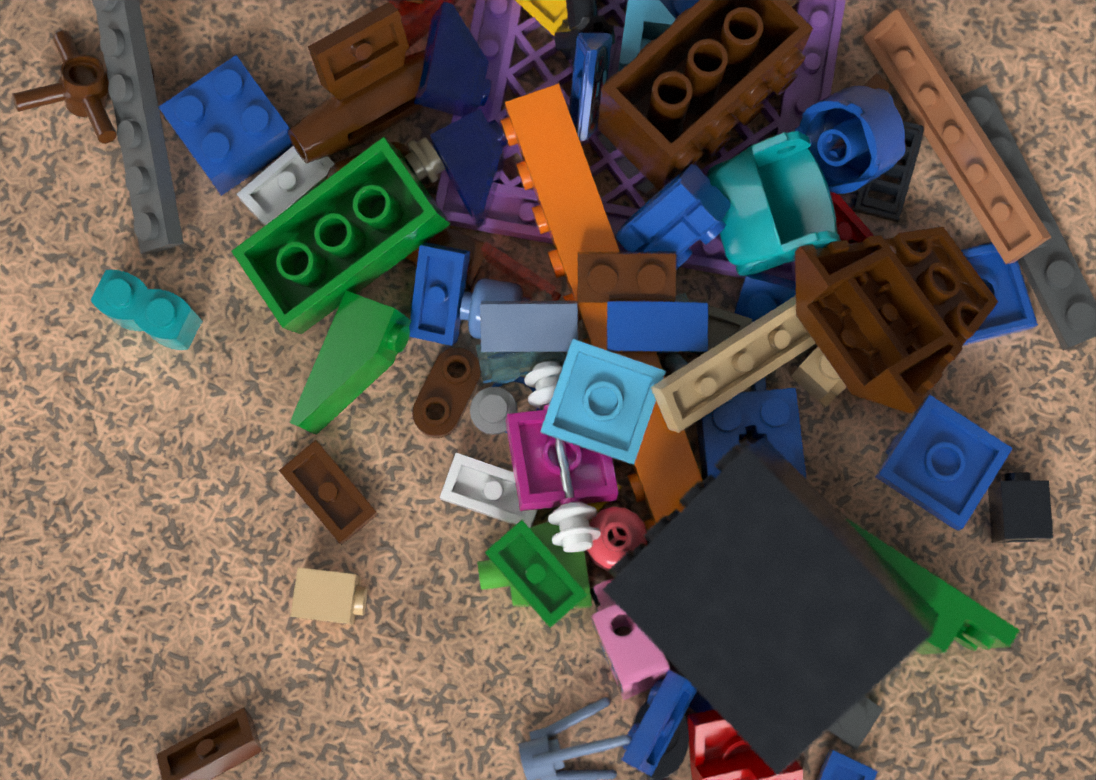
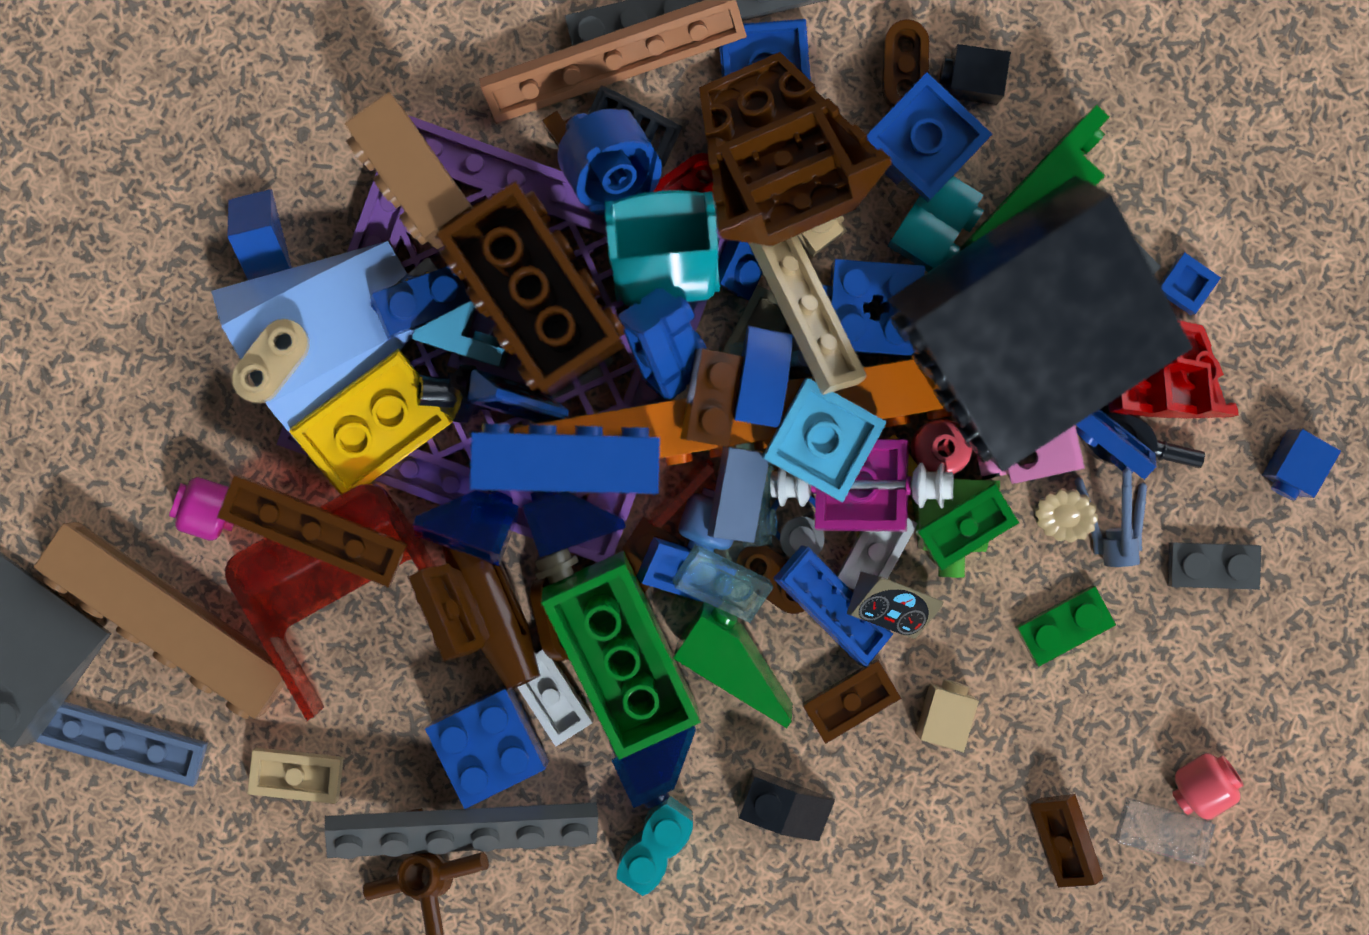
camera: 75 degrees left, 10 degrees up
(204, 439) = (784, 807): none -> black slope
(229, 297) = (654, 770): none -> clear blue slope
(427, 452) = (827, 602): none -> blue plate
(432, 329) = (722, 583): none -> clear light blue plate
(437, 514) = (892, 605): none -> slope
(445, 713) = (1065, 625): none -> green plate
(533, 133) = (564, 461): none -> blue brick
(566, 691) = (1066, 515): none -> tan piece
(856, 493) = (932, 226): none -> teal brick
(1012, 428) = (903, 66): none -> reddish brown plate

